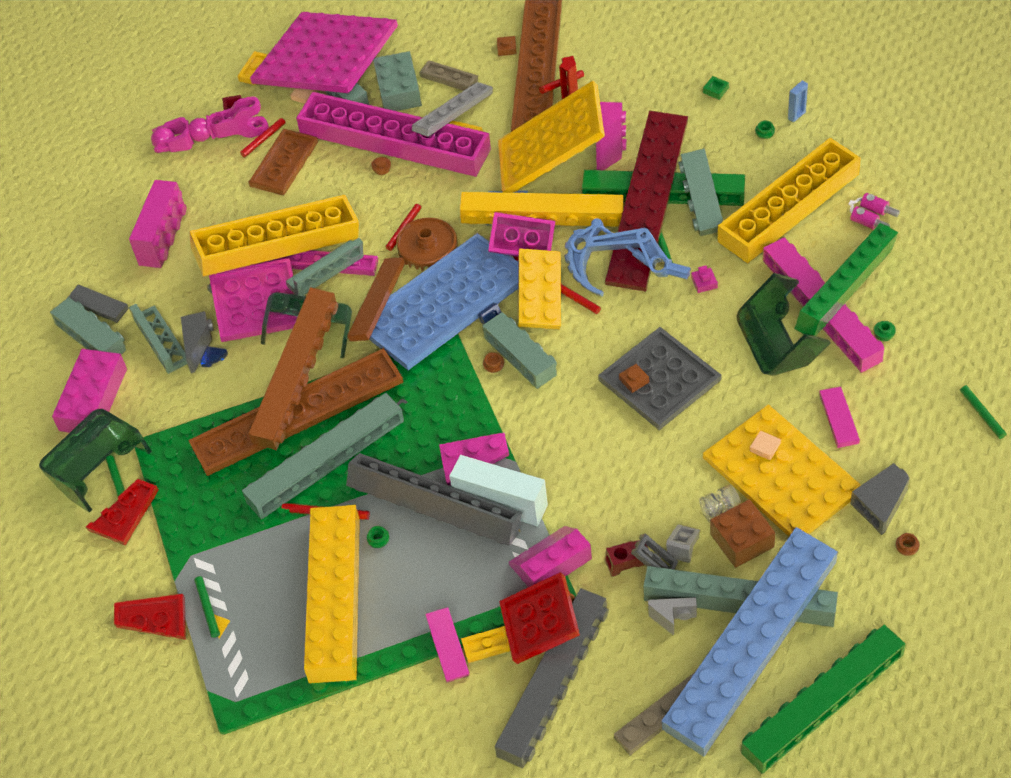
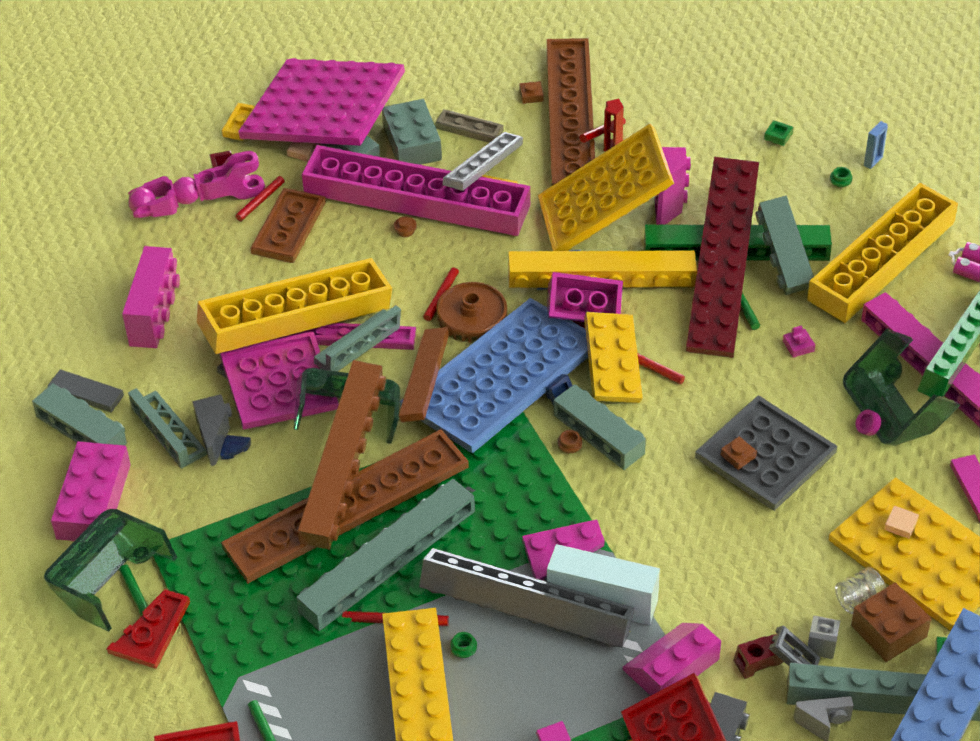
camera: 10 degrees left, 5 degrees down
(631, 239) = (712, 299): medium blue piece -> none
(752, 354) = (868, 422): none -> dark pink tile

